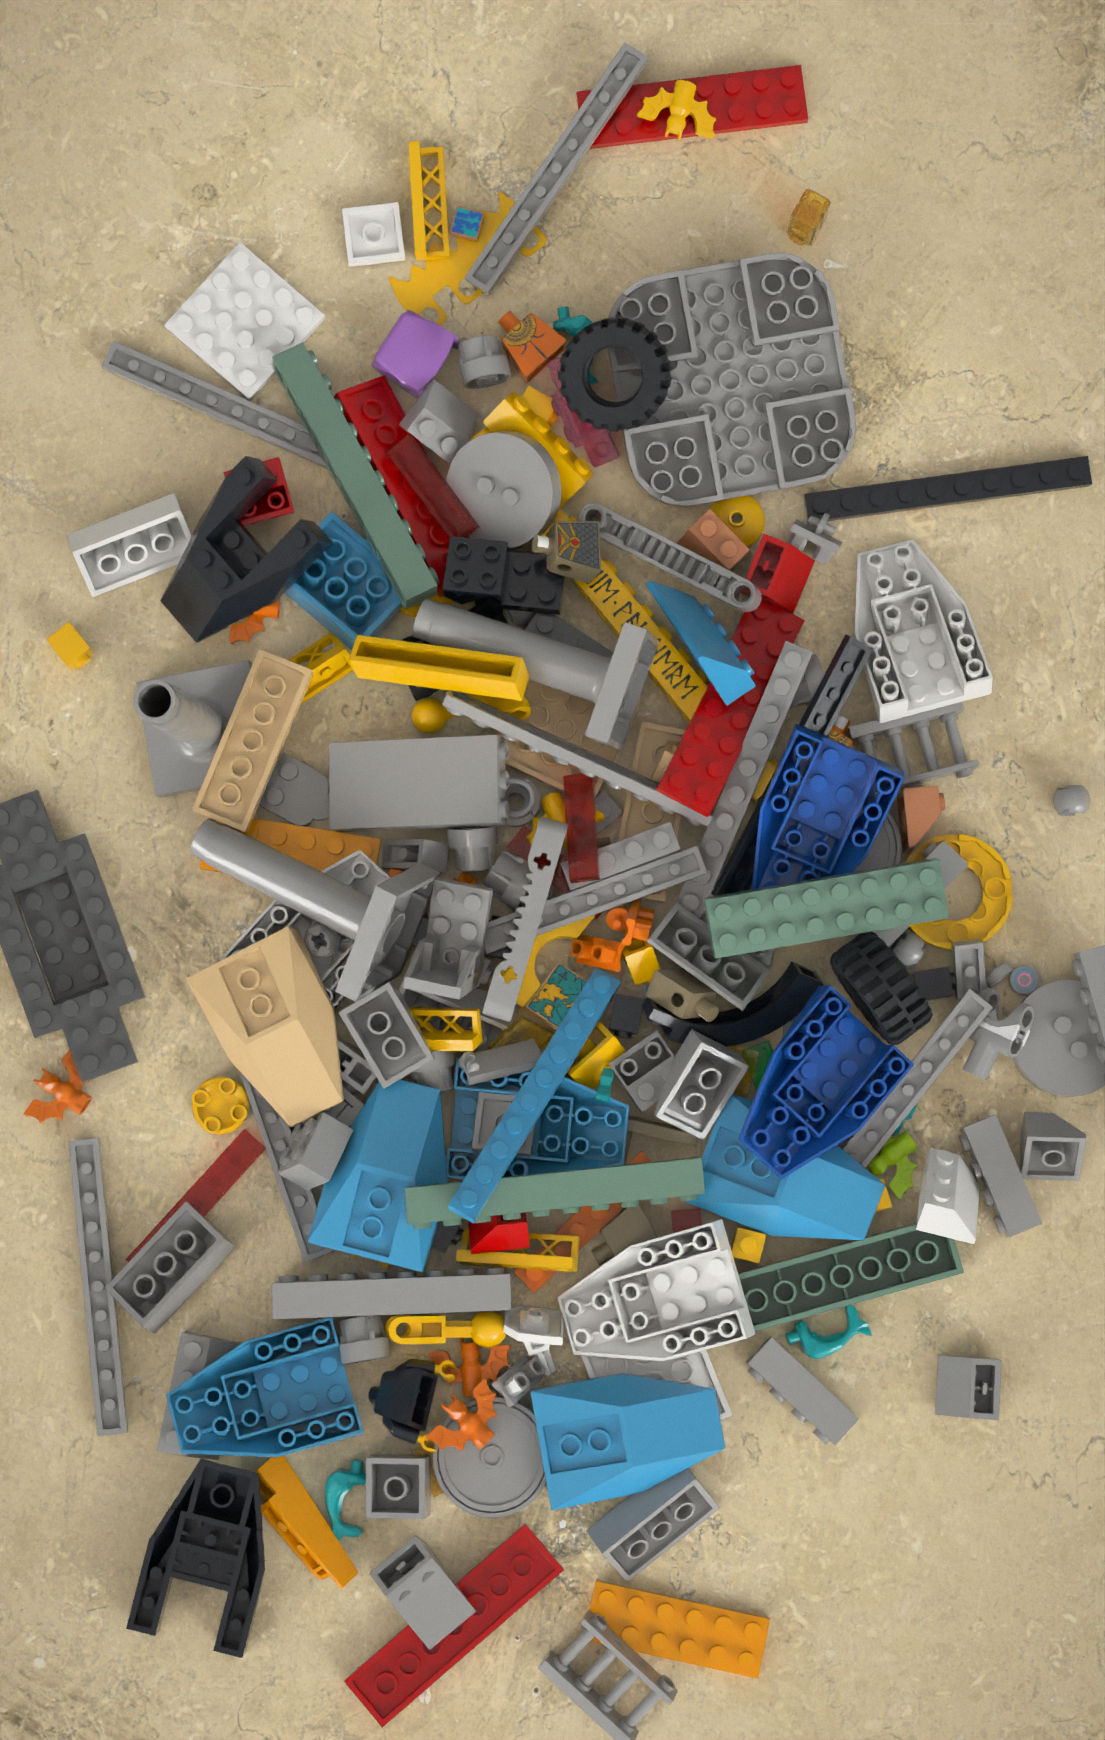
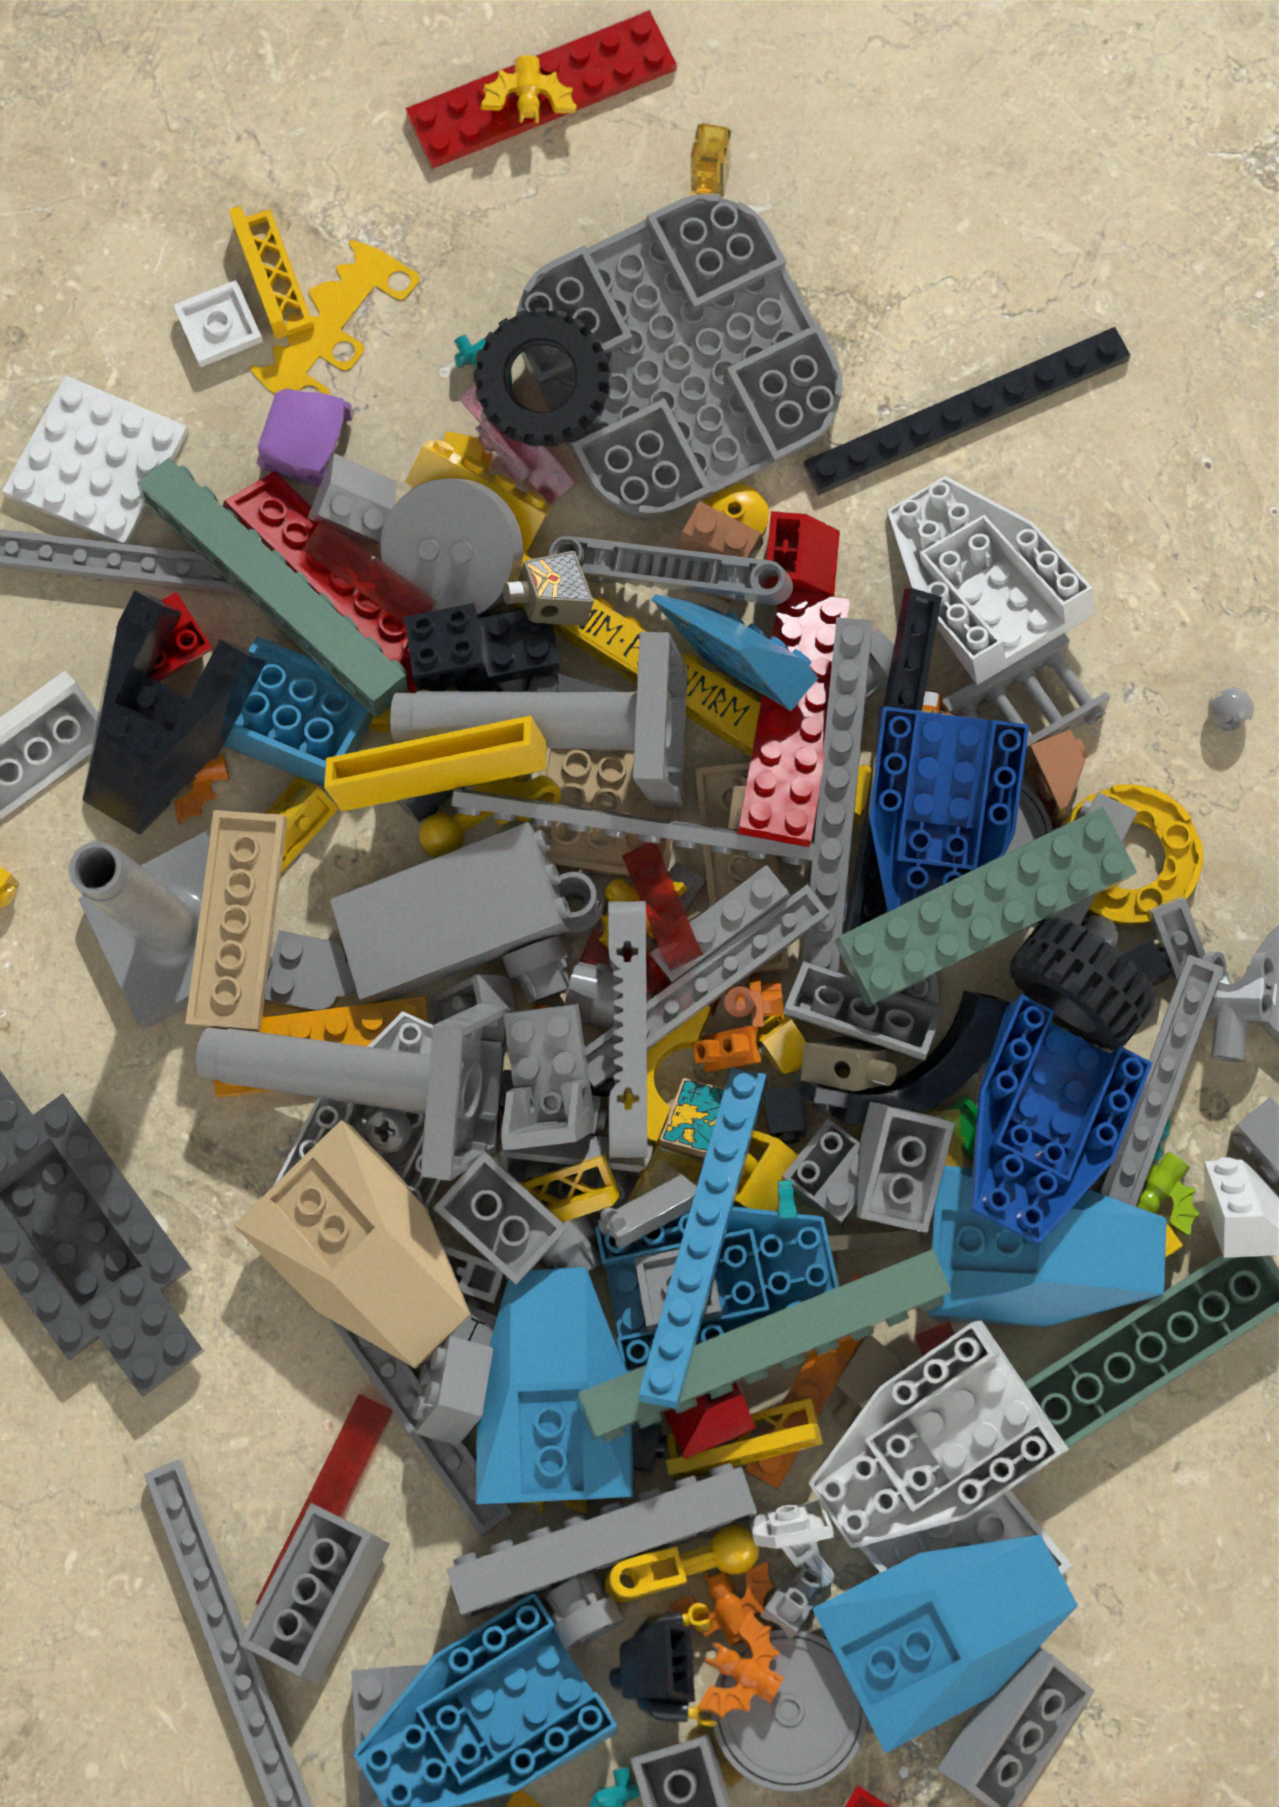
camera: 10 degrees left, 10 degrees down
(66, 1094) = (126, 1418): orange animal -> none
(220, 1105) = (321, 1374): yellow dish -> none
(467, 223) = (322, 282): tile -> none
(483, 362) = (386, 422): light grey piece -> none
(530, 344) = (433, 389): orange torso -> none
(556, 169) = (406, 193): light grey plate -> none
(747, 1245) = (1023, 1346): yellow brick -> none
(802, 1390) = (1148, 1508): light grey brick -> none
(821, 1346) = (1151, 1447): teal animal -> none
(826, 544) = (848, 509): light grey hips -> none
(998, 974) = (1215, 934): light grey tile -> none
(1023, 980) = (1246, 933): light grey tile -> none

